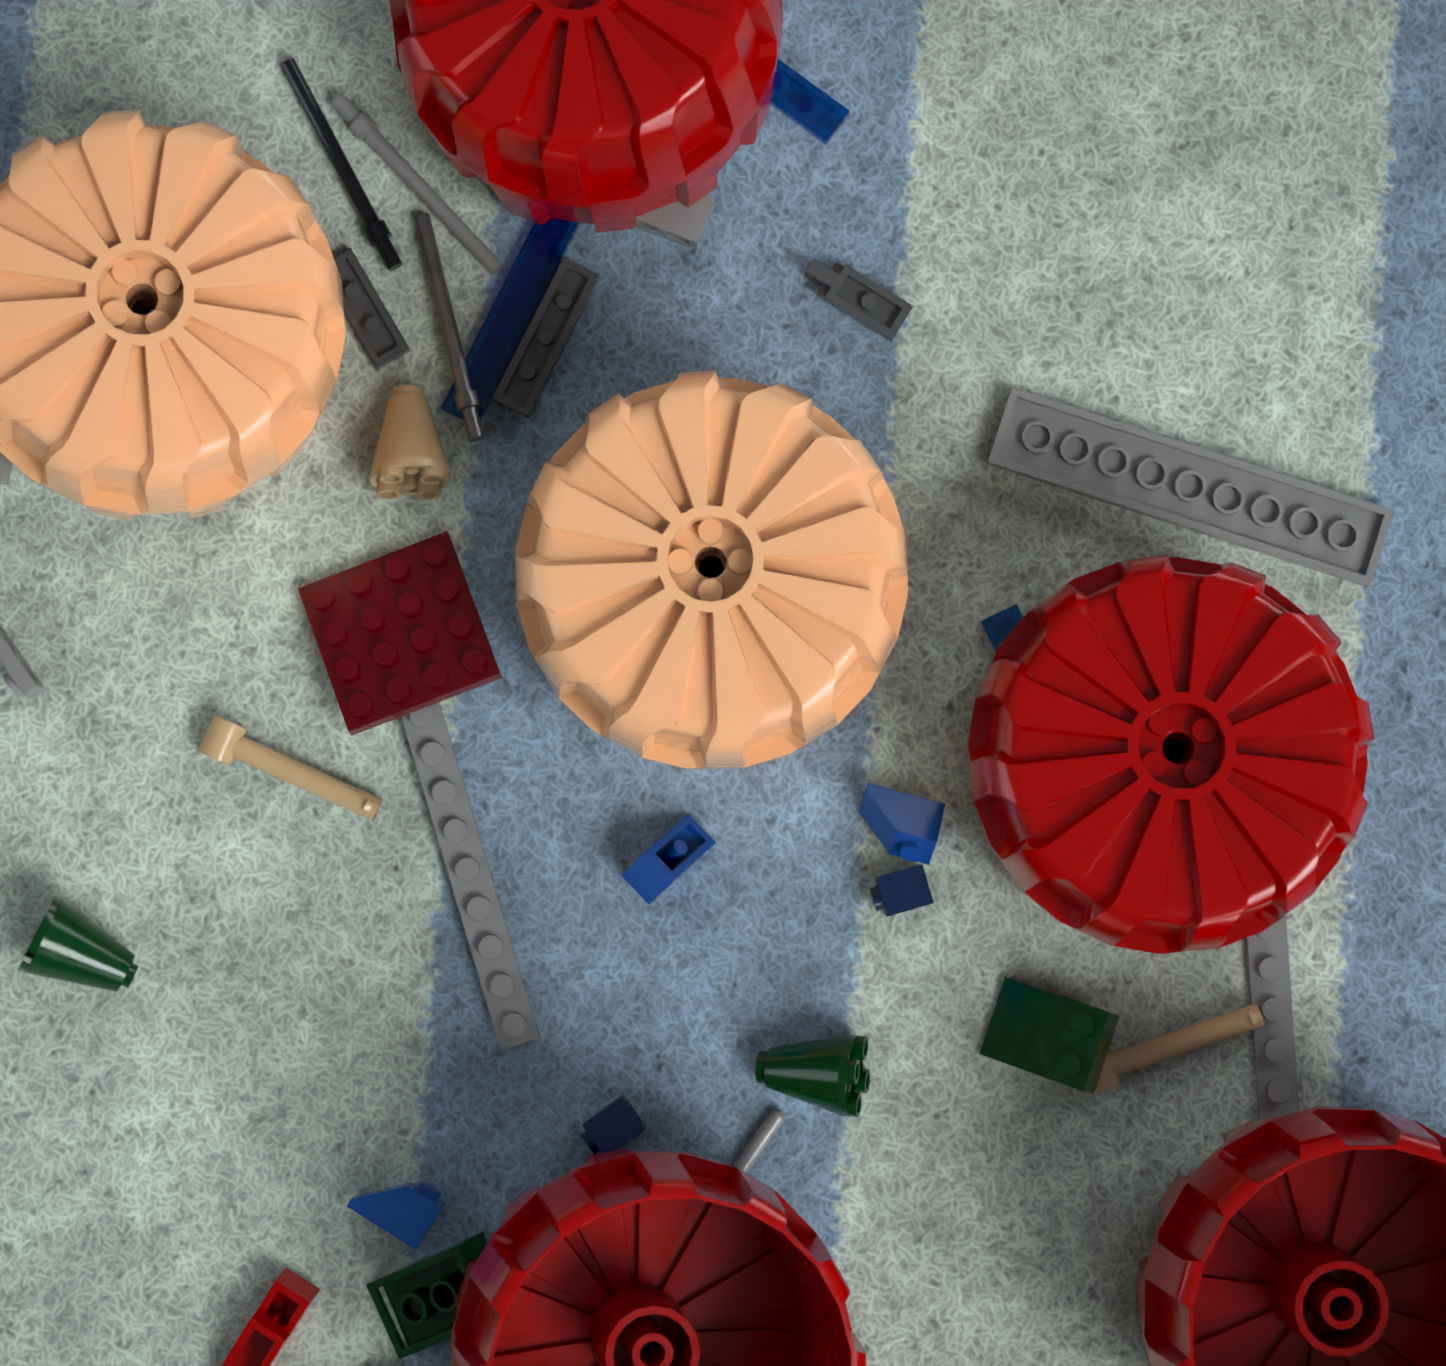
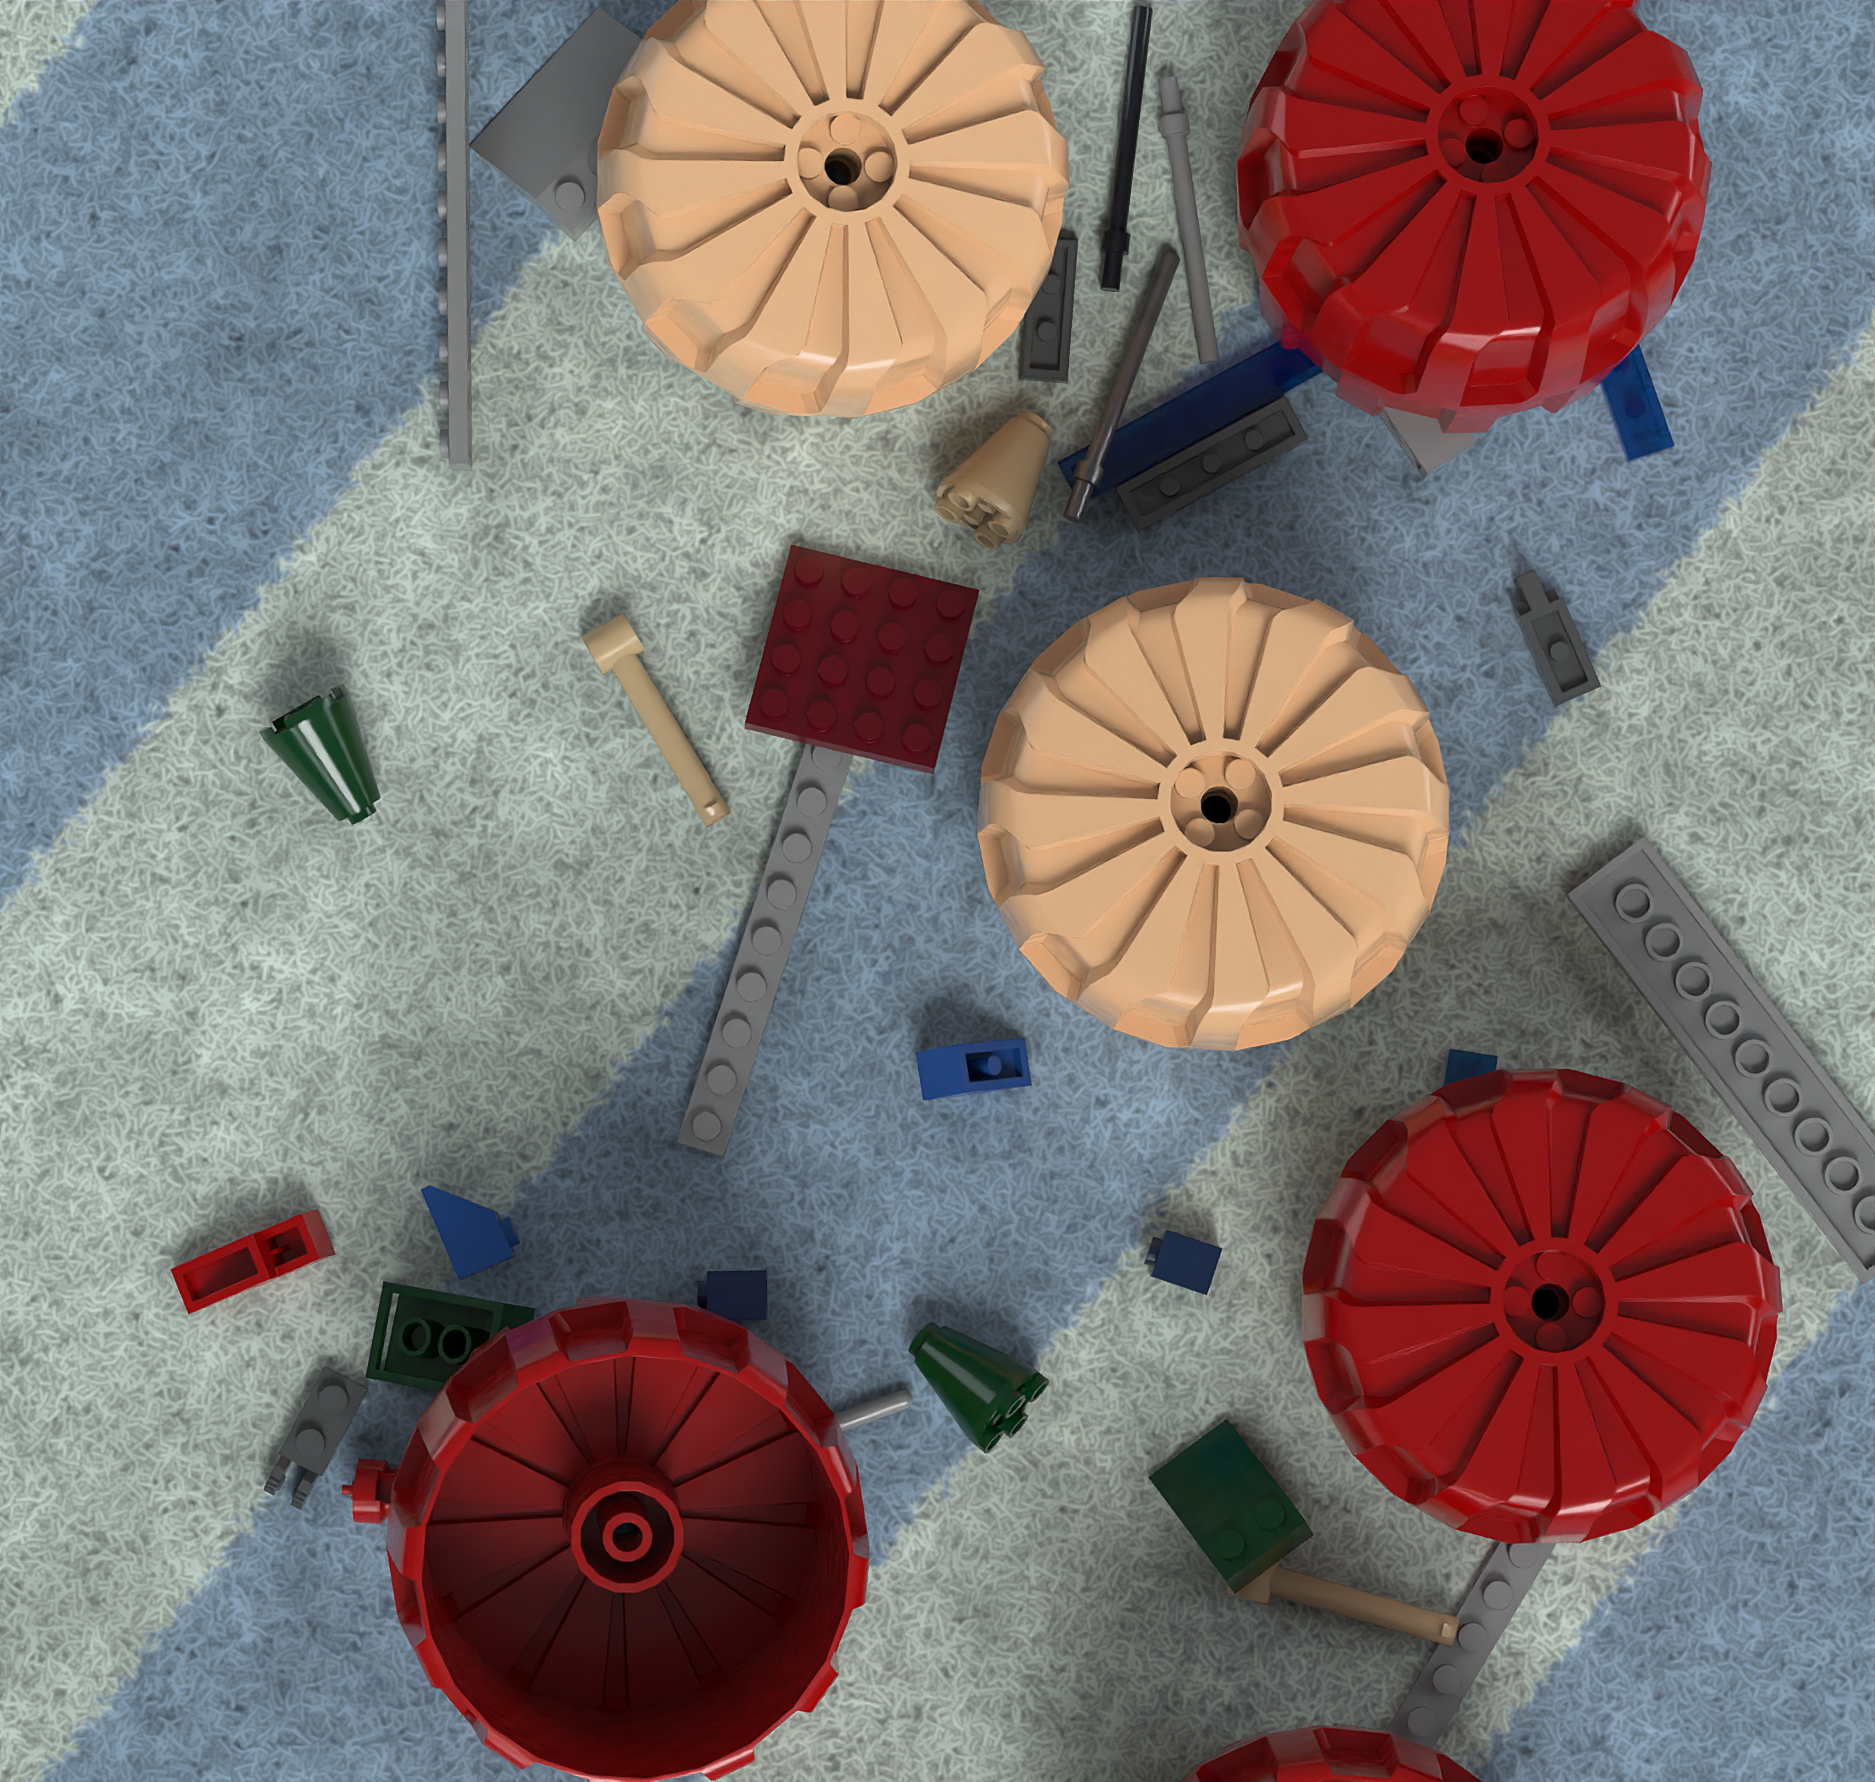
camera: 30 degrees right, 0 degrees up
(903, 822) = (1232, 1193): blue slope -> none

